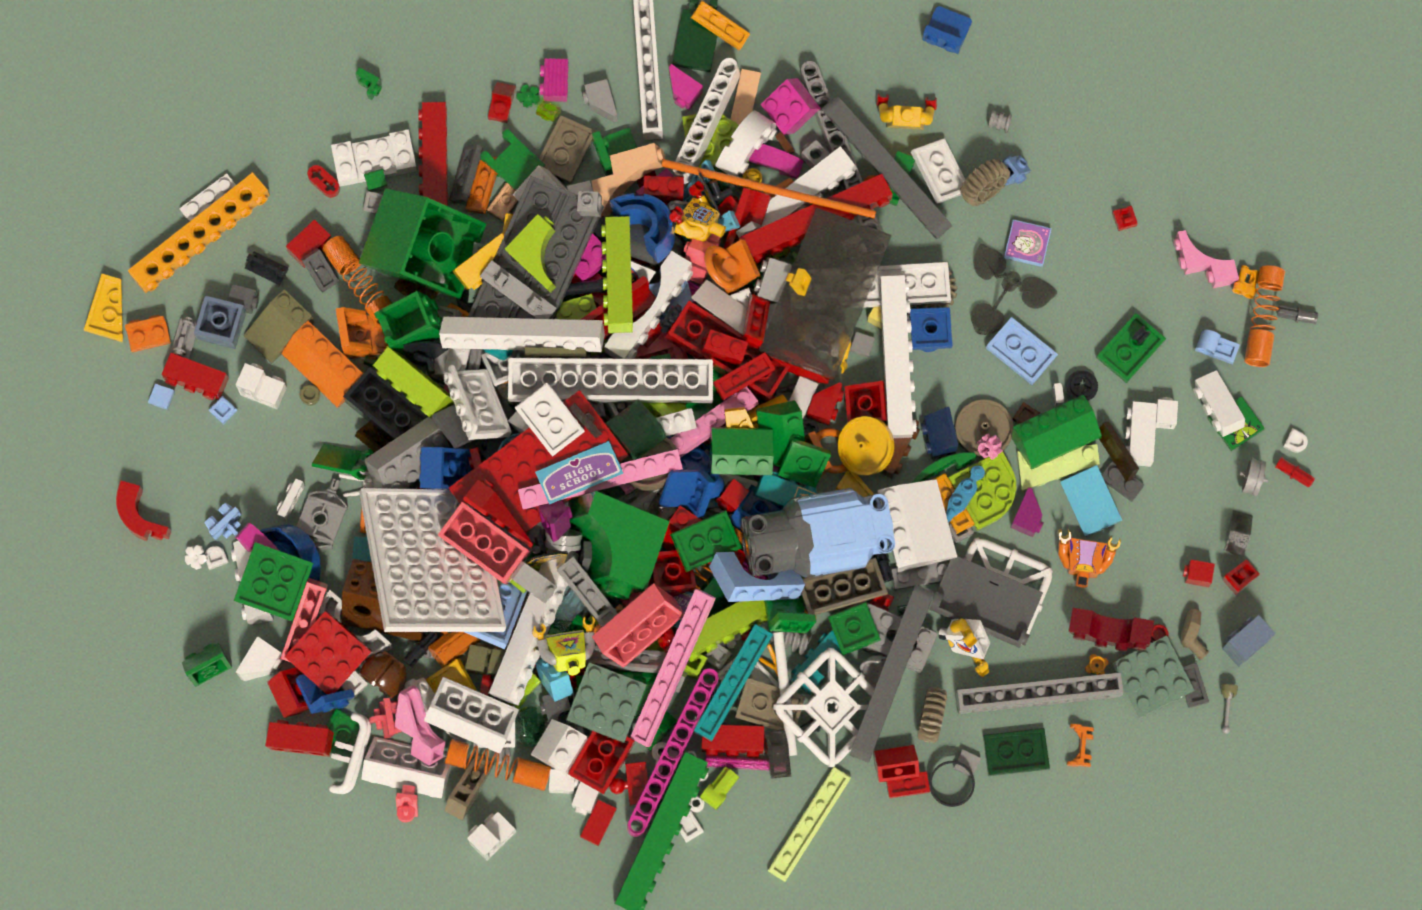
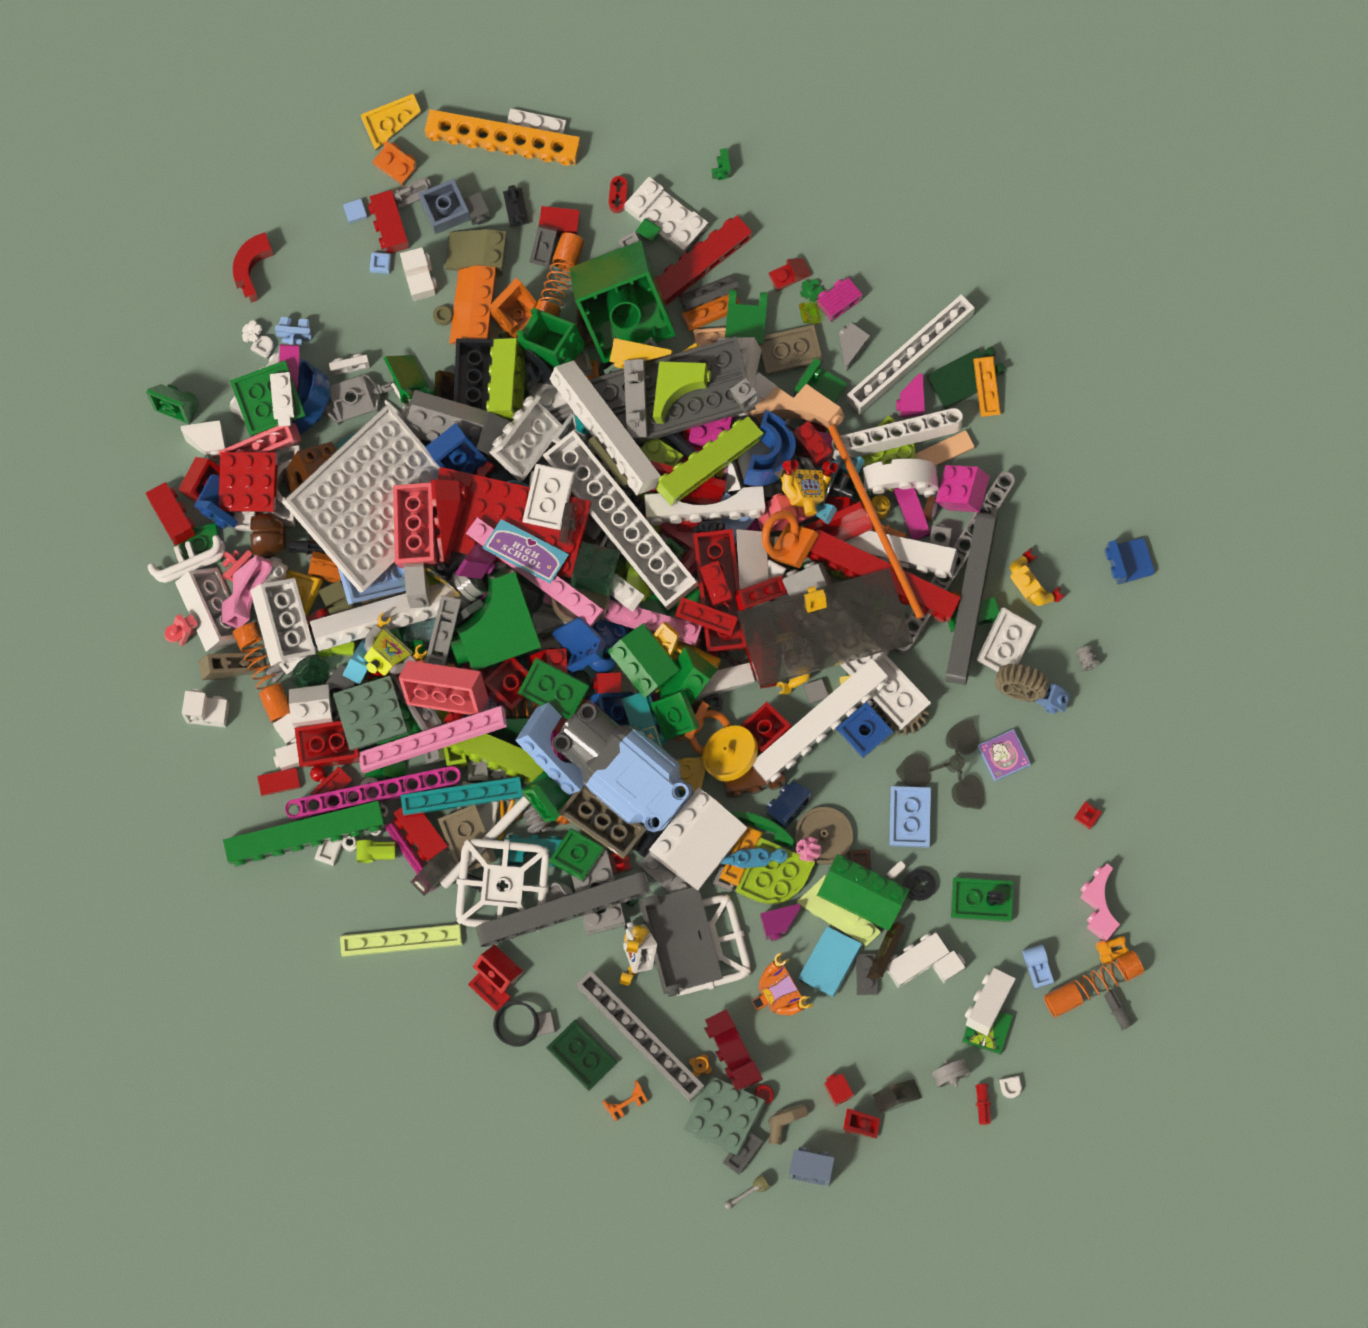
camera: 55 degrees right, 0 degrees up
(285, 569) = (282, 398): none -> white hinge
(748, 228) = (835, 532): light grey tile -> none
(824, 404) = (742, 699): red slope -> none
(932, 714) = (557, 966): dark tan gear -> none

